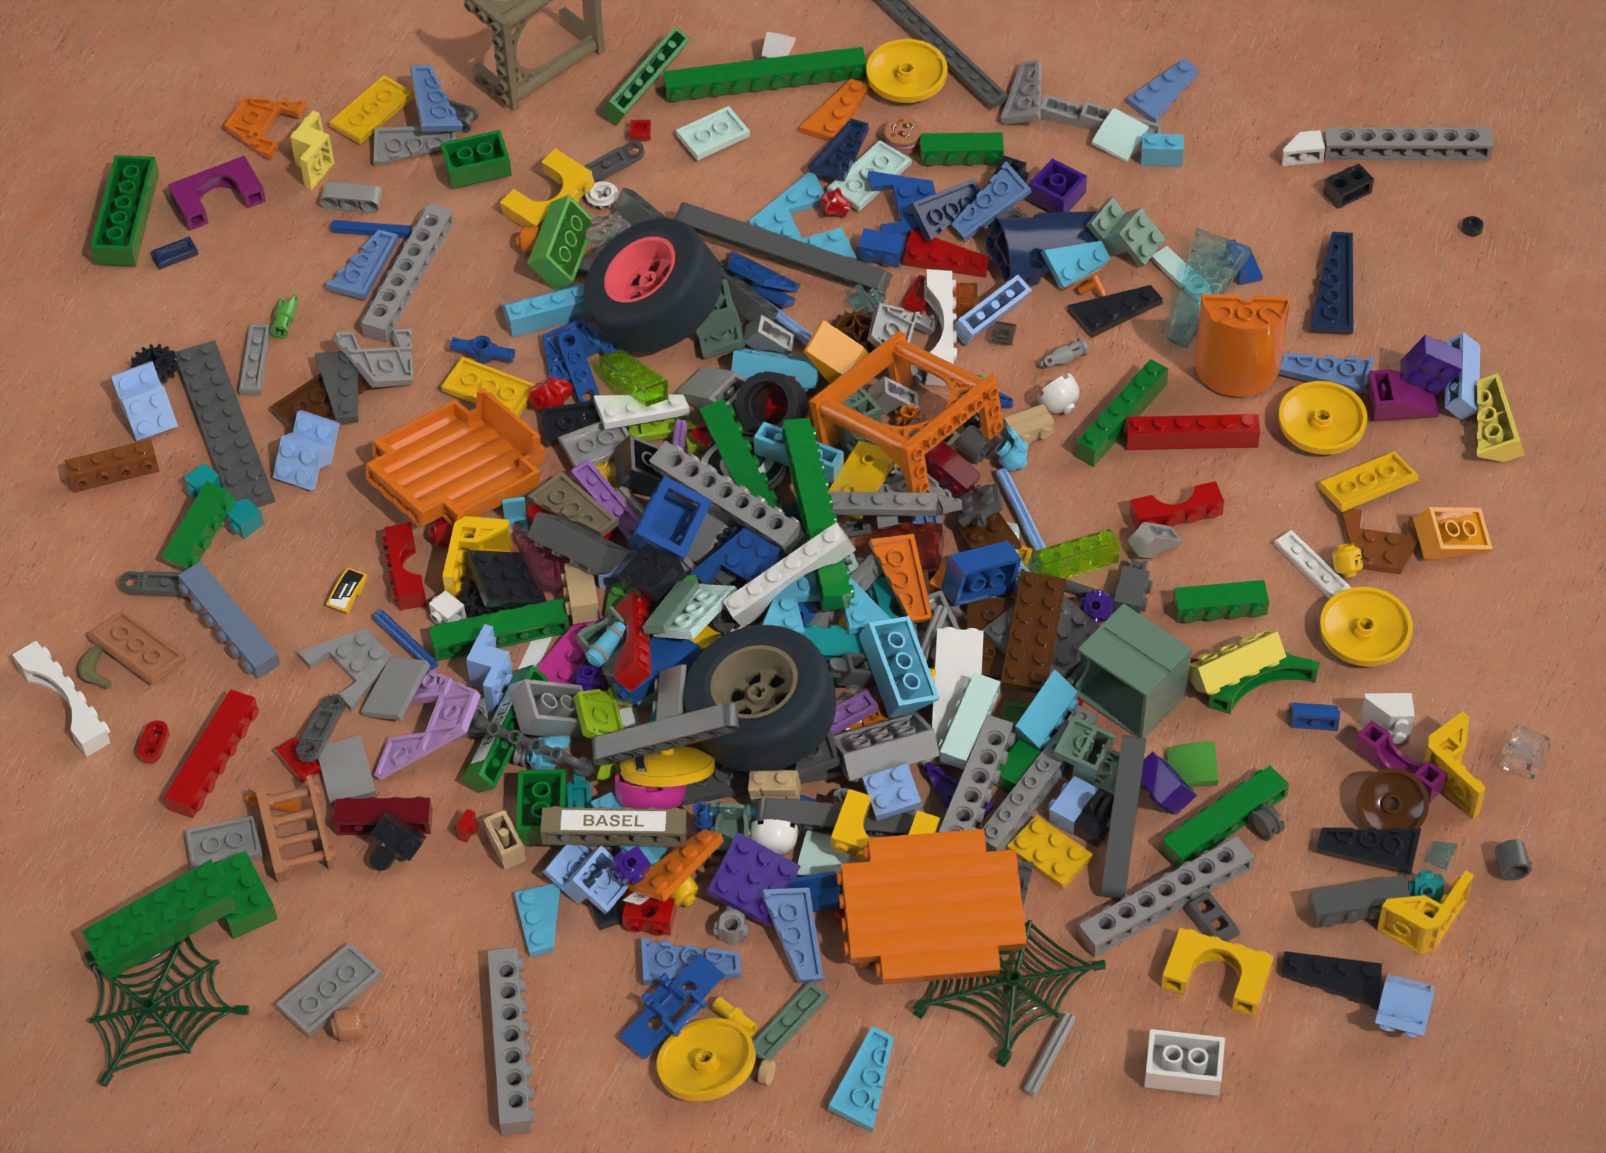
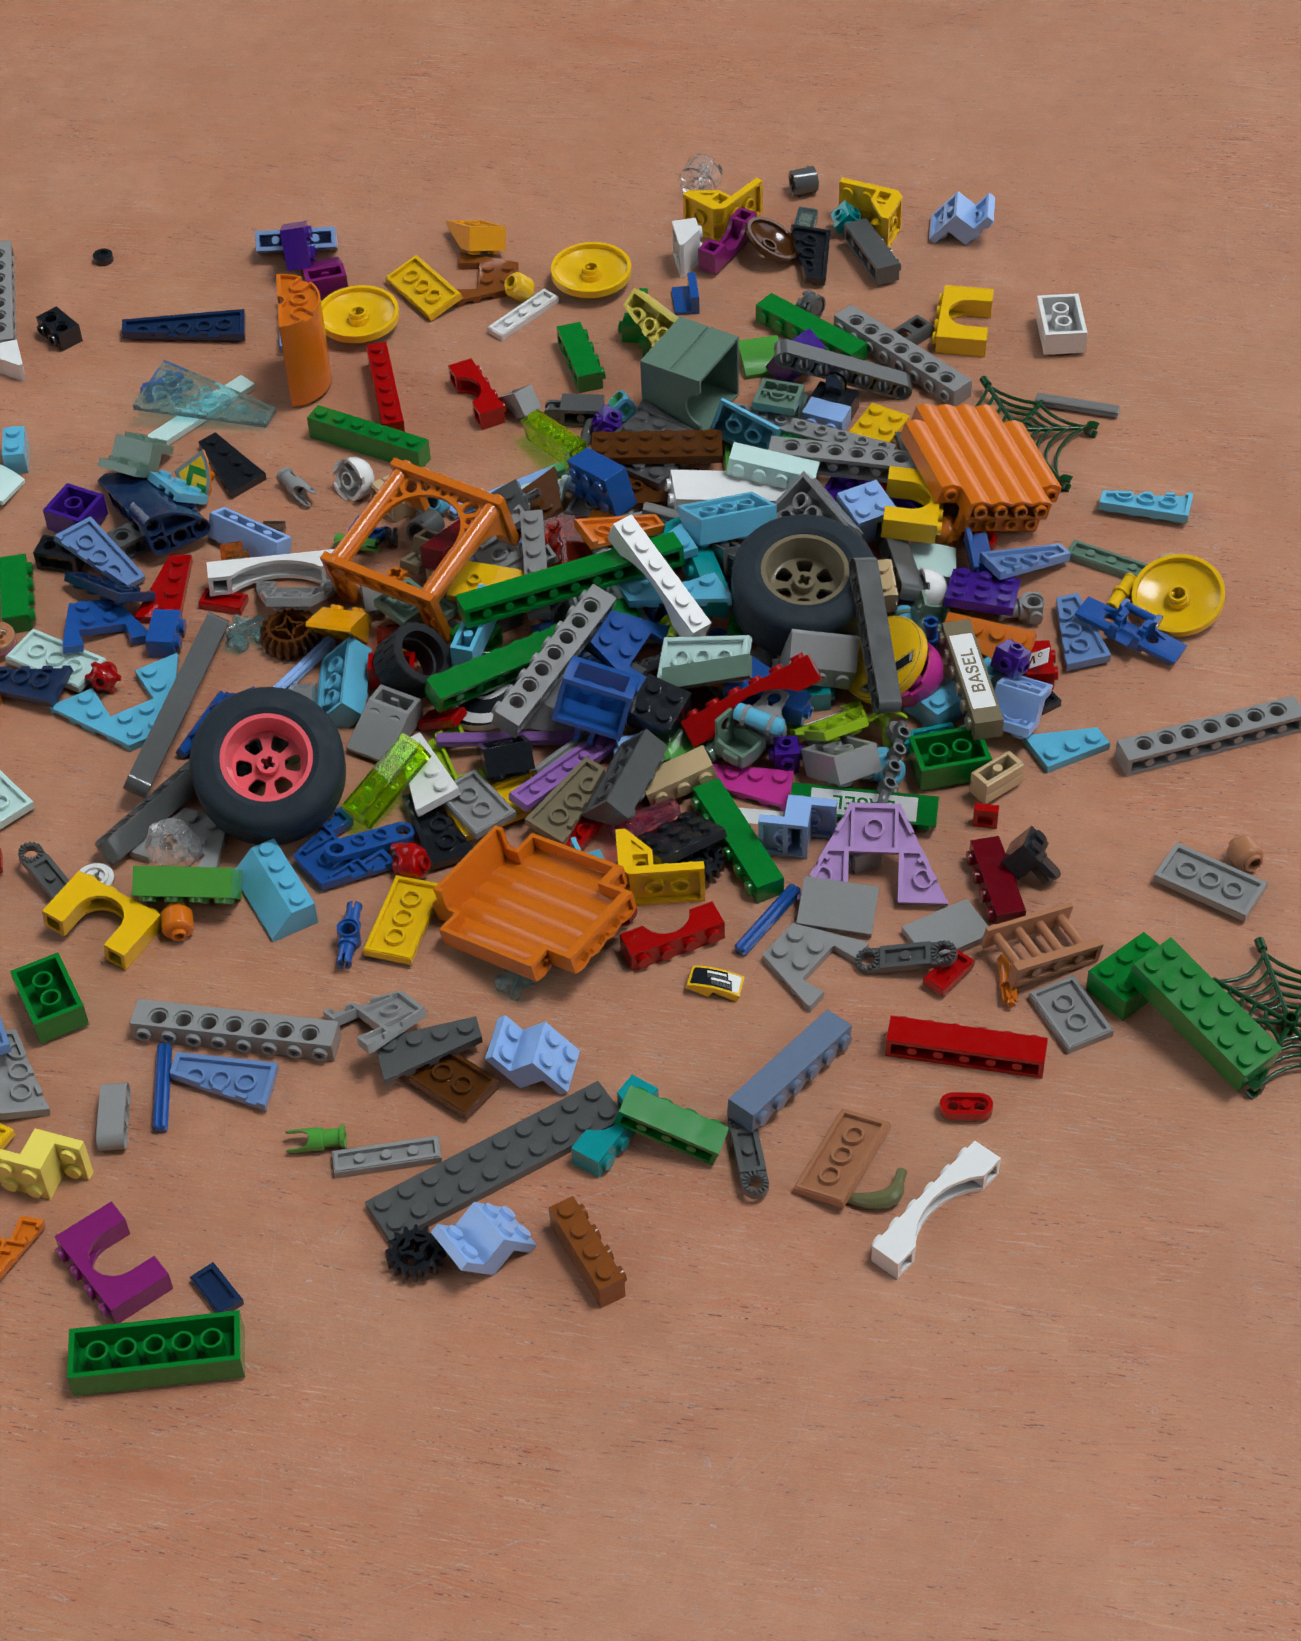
camera: 100 degrees left, 5 degrees down
(446, 608) = (724, 887): white brick -> none
(1342, 976) = (940, 263): black wing -> none
(1496, 426) = (347, 213): light yellow wedge -> none

